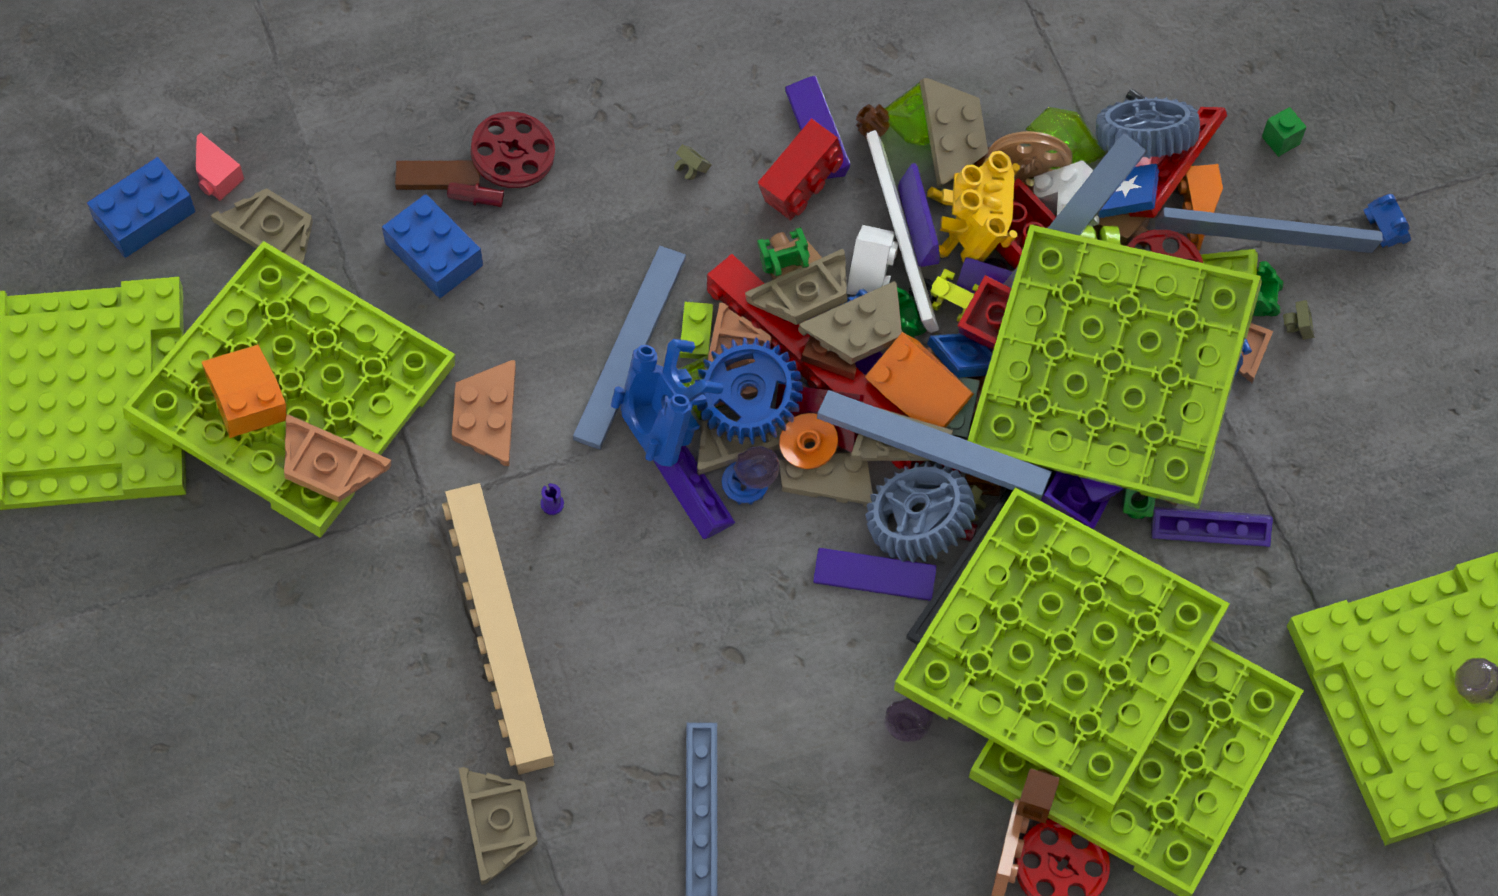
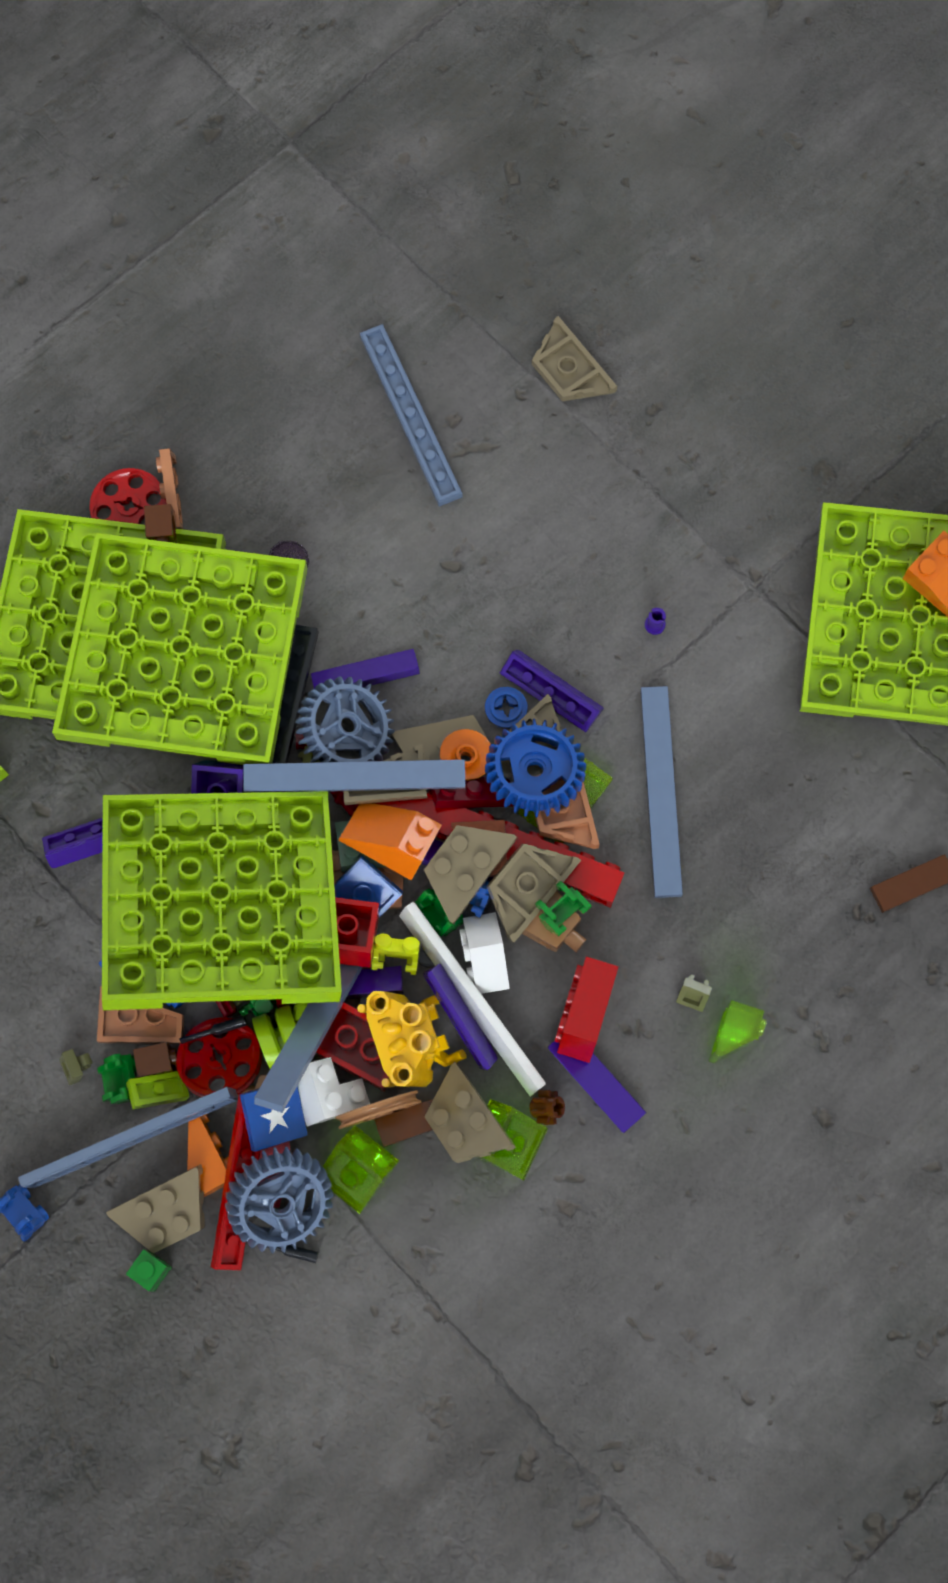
camera: 160 degrees right, 10 degrees up
(327, 461) = (848, 551): nougat wing -> none
(432, 246) = (878, 804): blue brick -> none
(475, 194) = (868, 875): dark red axle -> none
(486, 411) = (750, 680): nougat wing -> none
(499, 630) = (645, 505): tan brick -> none
(512, 138) = (869, 922): dark red wedge -> none
(659, 404) = (601, 723): blue piece -> none
(674, 107) = (737, 1029): none -> clear neon green slope
(697, 328) = (611, 830): lime plate -> none
(757, 467) = (498, 707): clear purple hair -> none
(1256, 169) = (164, 1212): none -> dark tan wing

